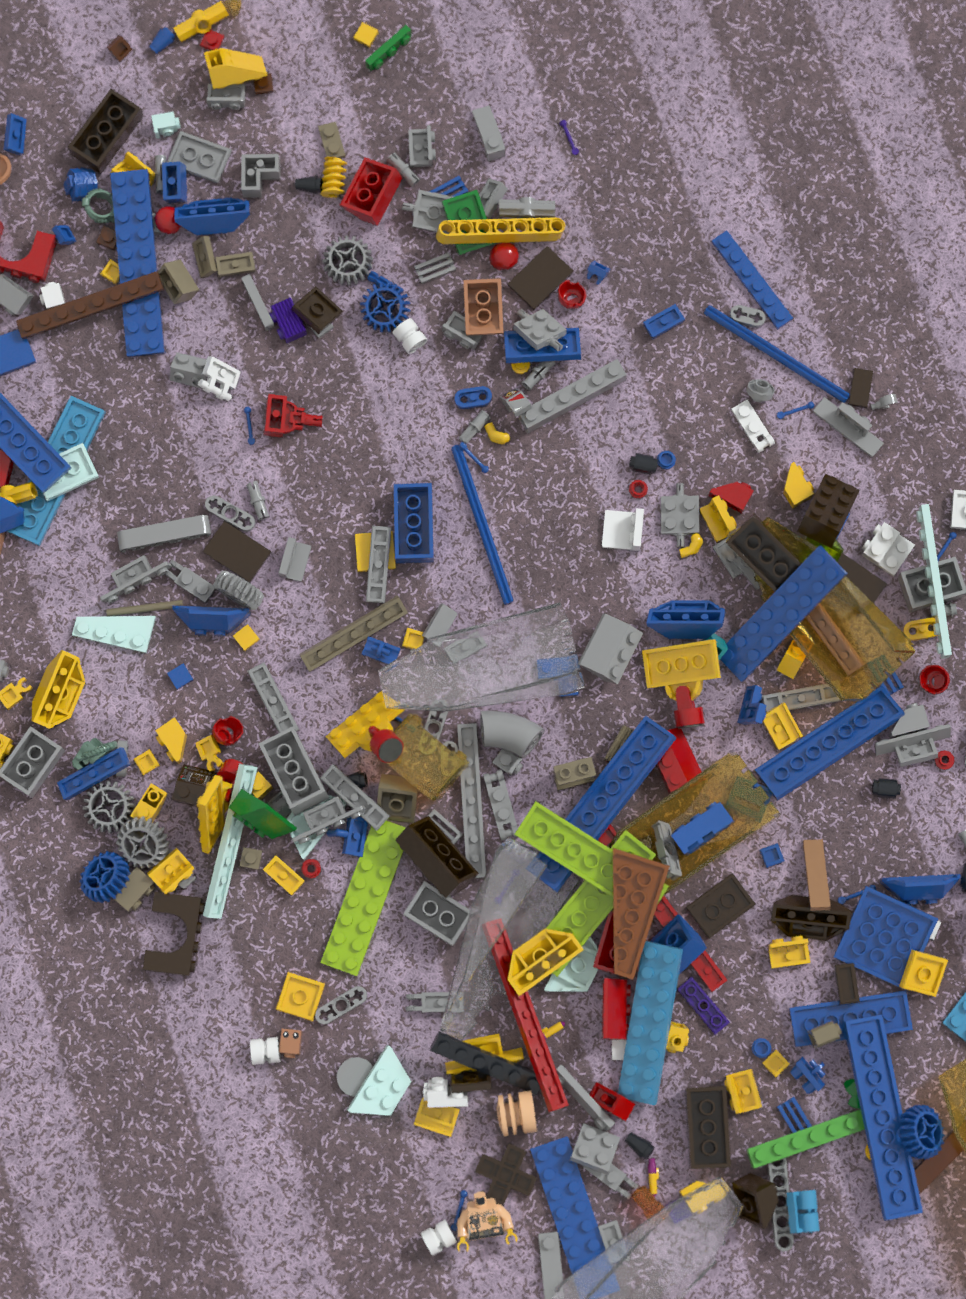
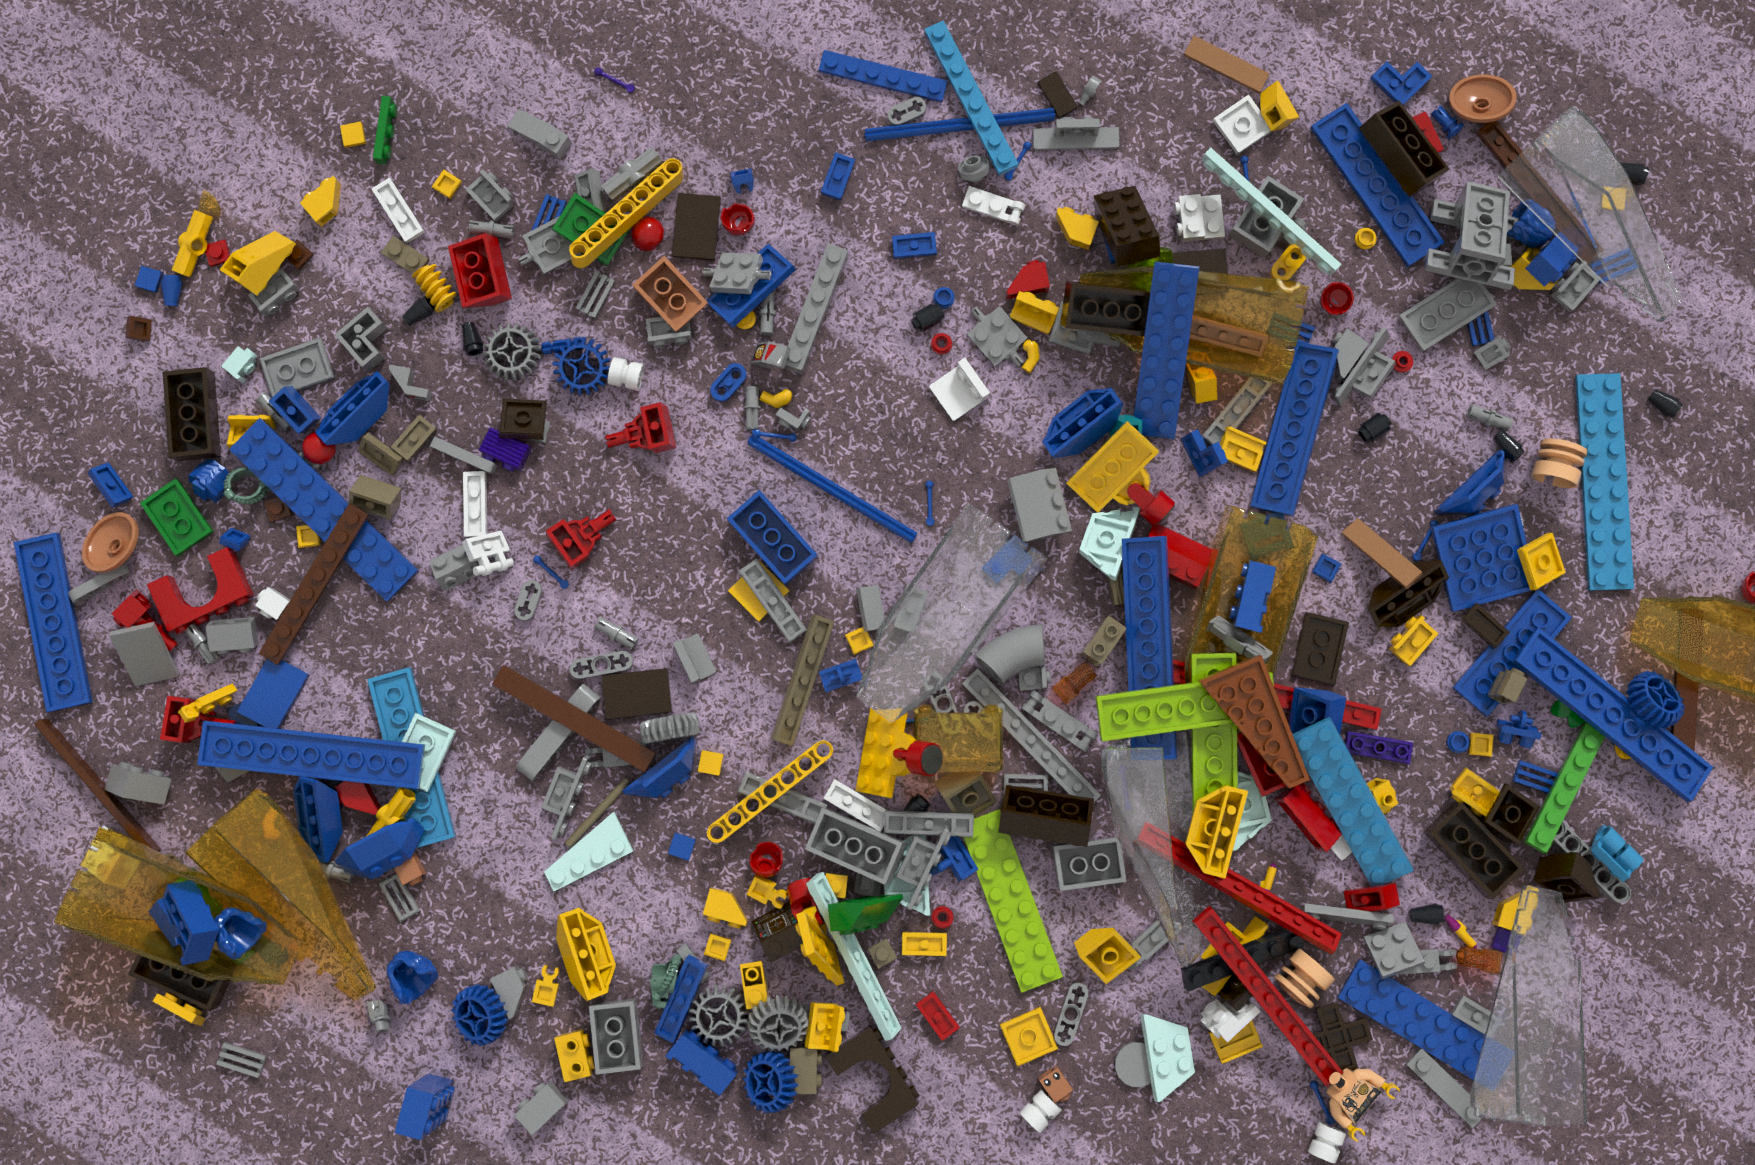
camera: 40 degrees left, 5 degrees up
(39, 190) = (177, 517): none -> green plate
(72, 826) = (703, 1061): none -> blue wedge
(153, 22) = (149, 279): none -> blue tile
(182, 532) = (574, 718): none -> reddish brown tile
(216, 428) = (523, 598): none -> light grey beam
(238, 339) = (475, 503): none -> white plate
(251, 930) = (937, 1015): none -> red plate
(260, 682) = (759, 794): none -> yellow beam
(263, 220) = (405, 378): none -> light grey slope
(309, 63) = (324, 201): none -> yellow slope
(317, 745) = (856, 805): none -> white plate
(328, 231) = (471, 339): none -> black cone
(352, 108) = (398, 210): none -> white plate
(392, 385) = (648, 430): none -> red brick
(398, 983) = (1106, 952): none -> yellow slope
(399, 116) = (447, 184): none -> yellow tile
(480, 1098) = (1266, 995): none -> red plate
(490, 454) = (788, 420): none -> light grey bracket
(529, 600) = (929, 485): none -> blue hinge
(532, 787) = (1071, 685): none -> clear orange piece
(633, 706) = (1104, 539): none -> light aqua wing
(676, 408) = (914, 245): none -> blue plate
(752, 1123) = (1510, 815): none -> dark brown slope
(798, 342) = (971, 98): none -> dark azure plate

